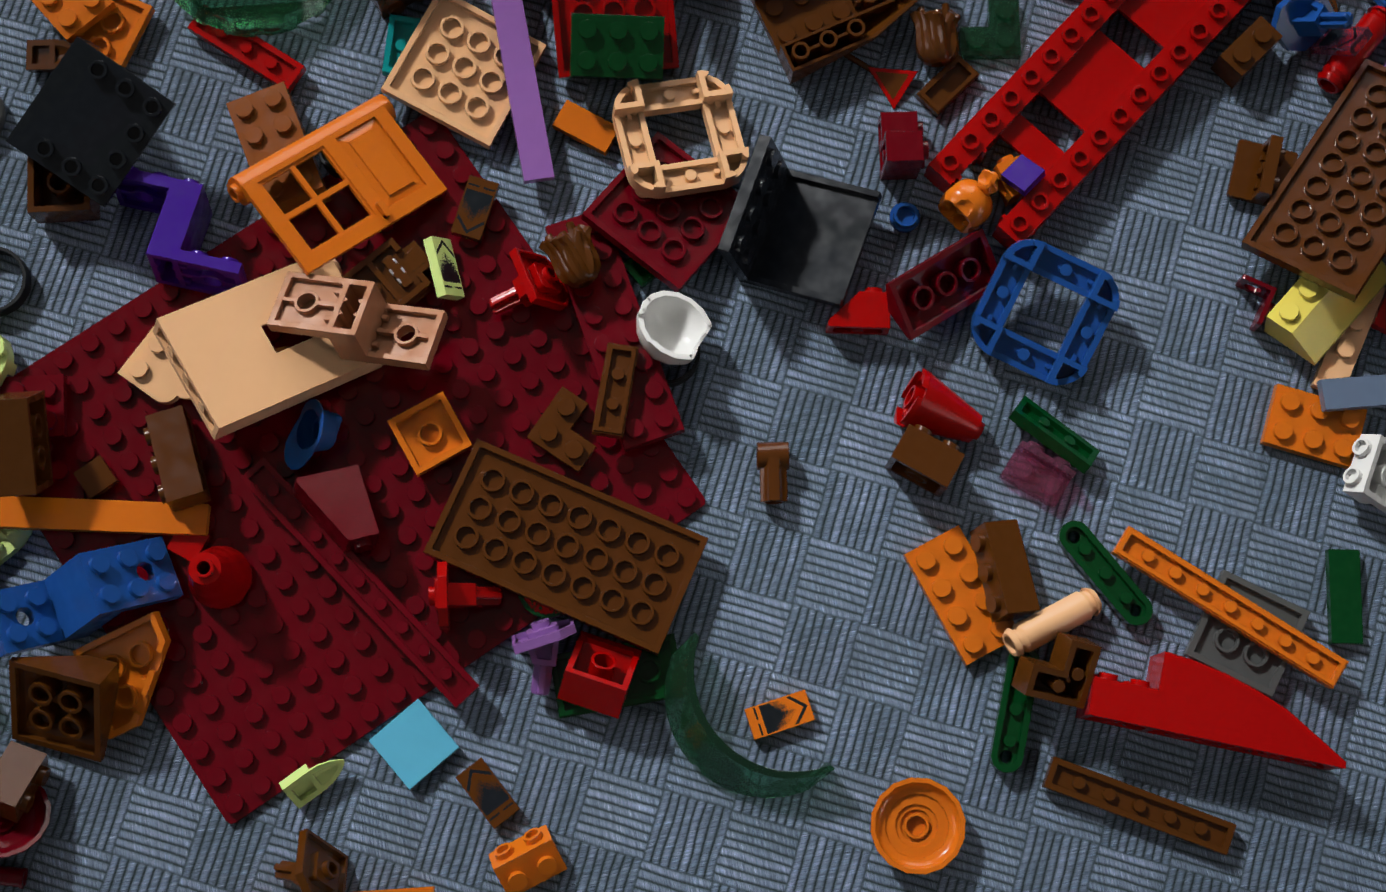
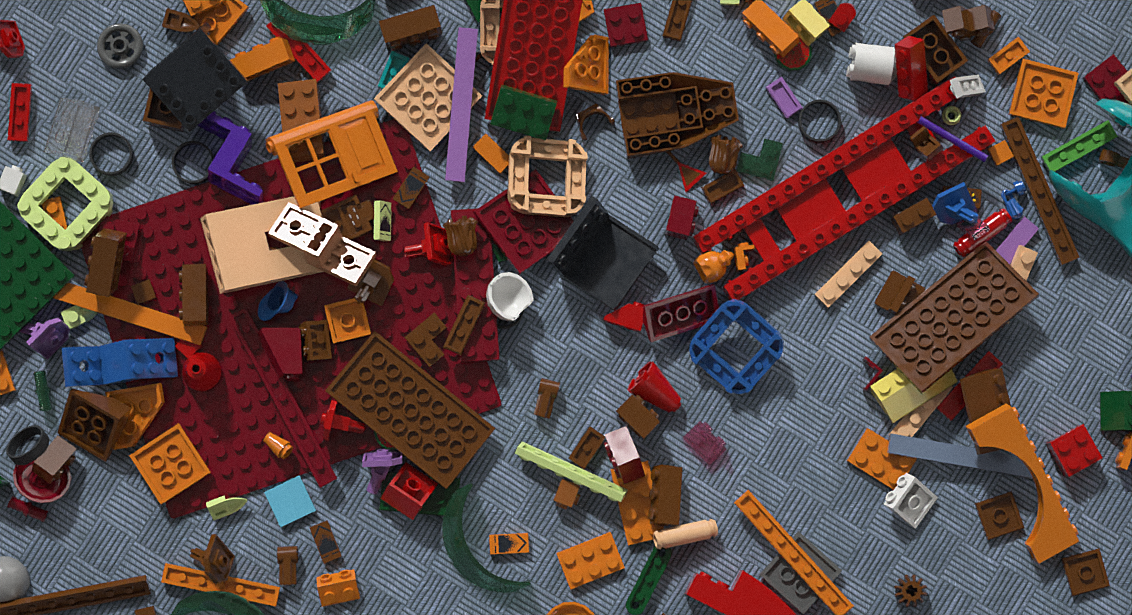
camera: 15 degrees right, 5 degrees up
(97, 249) = (178, 149): none -> black tyre
(153, 373) = (192, 236): light nougat plate -> none
(197, 74) = (264, 58): none -> orange brick
(205, 737) = (170, 464): none -> orange plate
(371, 659) = (279, 446): none -> orange cone
(387, 479) = (315, 340): none -> reddish brown bracket
(434, 839) = (287, 559): none -> reddish brown piece
(456, 366) = (374, 284): none -> reddish brown piece
(721, 23) = (594, 109): none -> reddish brown helmet
(848, 611) = (567, 494): none -> dark orange brick
(858, 531) = (586, 447): none -> reddish brown plate
(858, 576) = (576, 474): none -> yellowish green plate
(904, 217) = (671, 263): blue plate -> none
(914, 706) = (590, 560): none -> orange plate
(922, 524) = (623, 455): none -> brick
(1023, 175) = (748, 259): dark purple tile -> none
(1054, 434) = (721, 422): dark green plate -> none
(1066, 675) = (678, 569): reddish brown brick -> none
(1104, 573) = (726, 513): dark green plate -> none
(1174, 164) = (848, 274): none -> light nougat plate
(1344, 596) = (866, 567): dark green tile -> none

